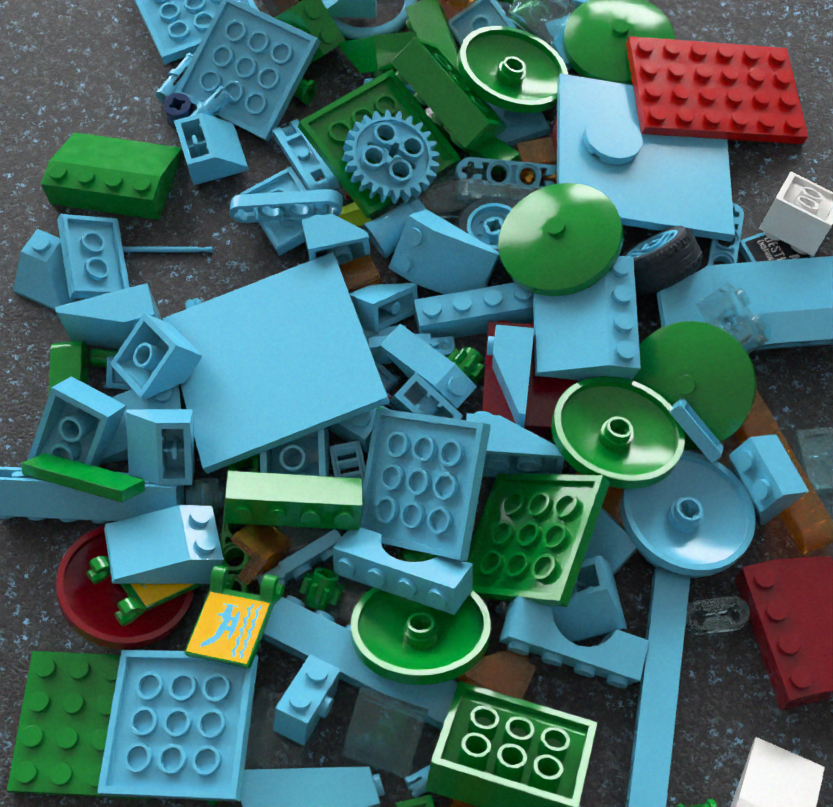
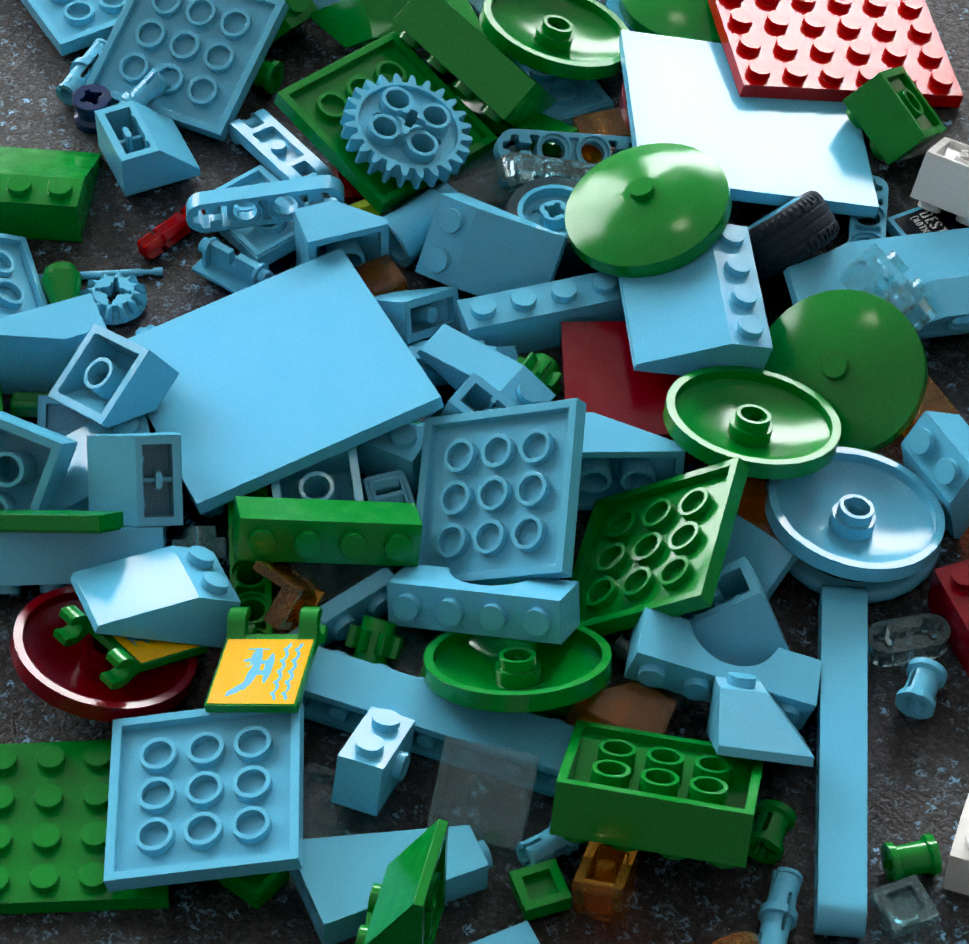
camera: 10 degrees left, 15 degrees down
(138, 263) = (61, 281): none -> green cone
(181, 279) = (125, 306): none -> medium azure gear
(216, 221) = (164, 235): none -> red axle
(260, 254) = (228, 269): none -> medium azure hinge
(511, 365) = (601, 360): medium azure slope -> none
(591, 704) = (751, 724): none -> medium azure slope
(595, 782) = (770, 830): none -> green bush
(612, 138) = (702, 98): medium azure tile -> none
(697, 430) = (855, 417): medium azure tile -> none
(721, 662) = (919, 693): none -> medium azure bush
(754, 155) = (893, 115): none -> green slope

